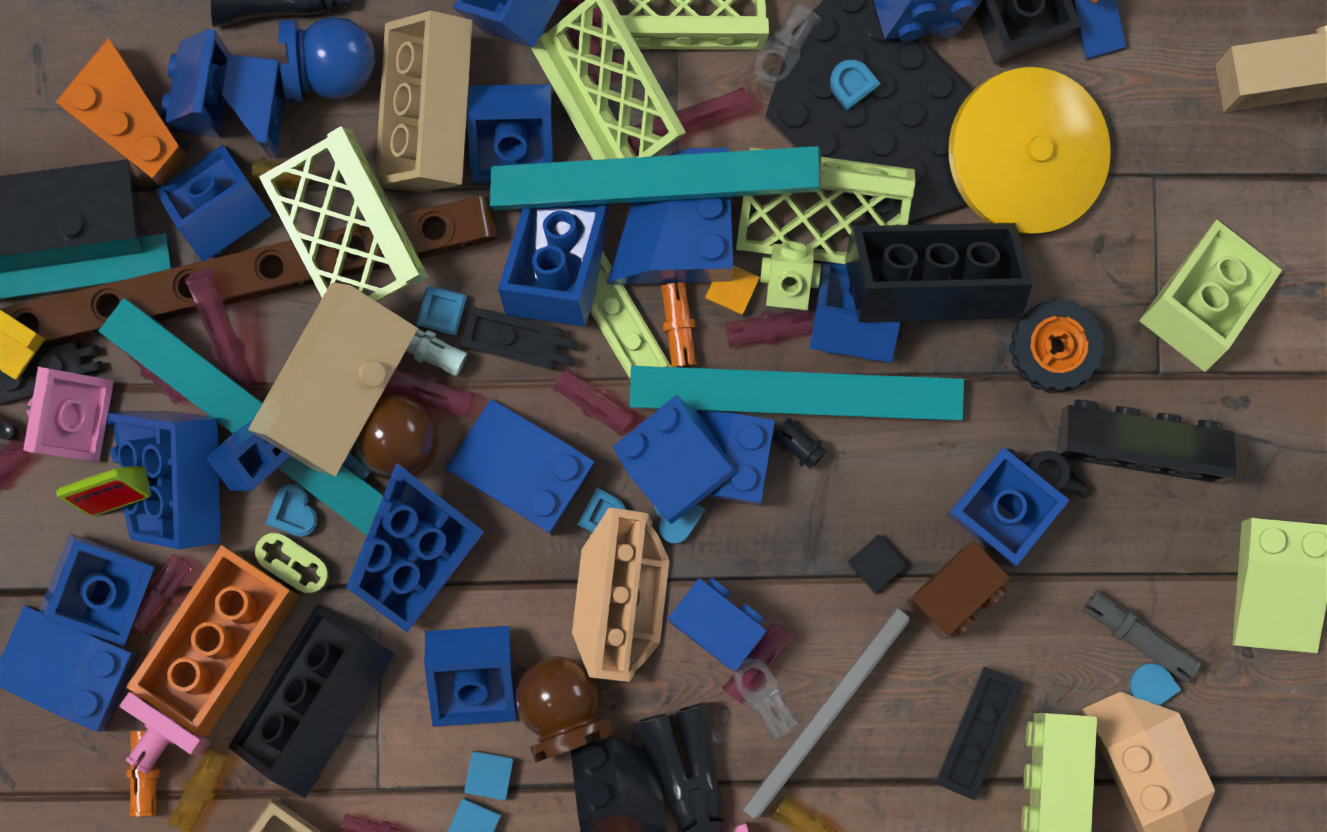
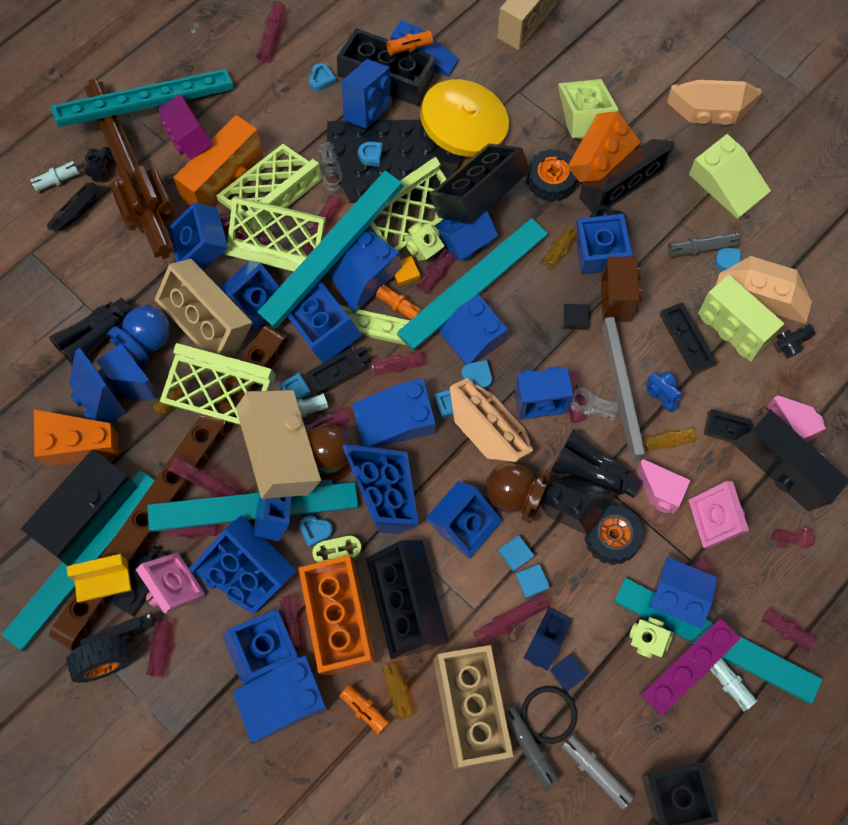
camera: 45 degrees left, 15 degrees down
(107, 490) = (221, 598): slope -> none
(159, 733) = (353, 675): bright pink tile -> none
(213, 203) = (150, 437): blue slope -> none
(674, 458) = (454, 346): blue slope -> none
(801, 446) = (497, 300): black pin -> none
(875, 759) = (665, 389): none -> blue plate
(956, 453) = (559, 247): none -> clear yellow pin
(1148, 382) = (603, 147): none -> orange wedge

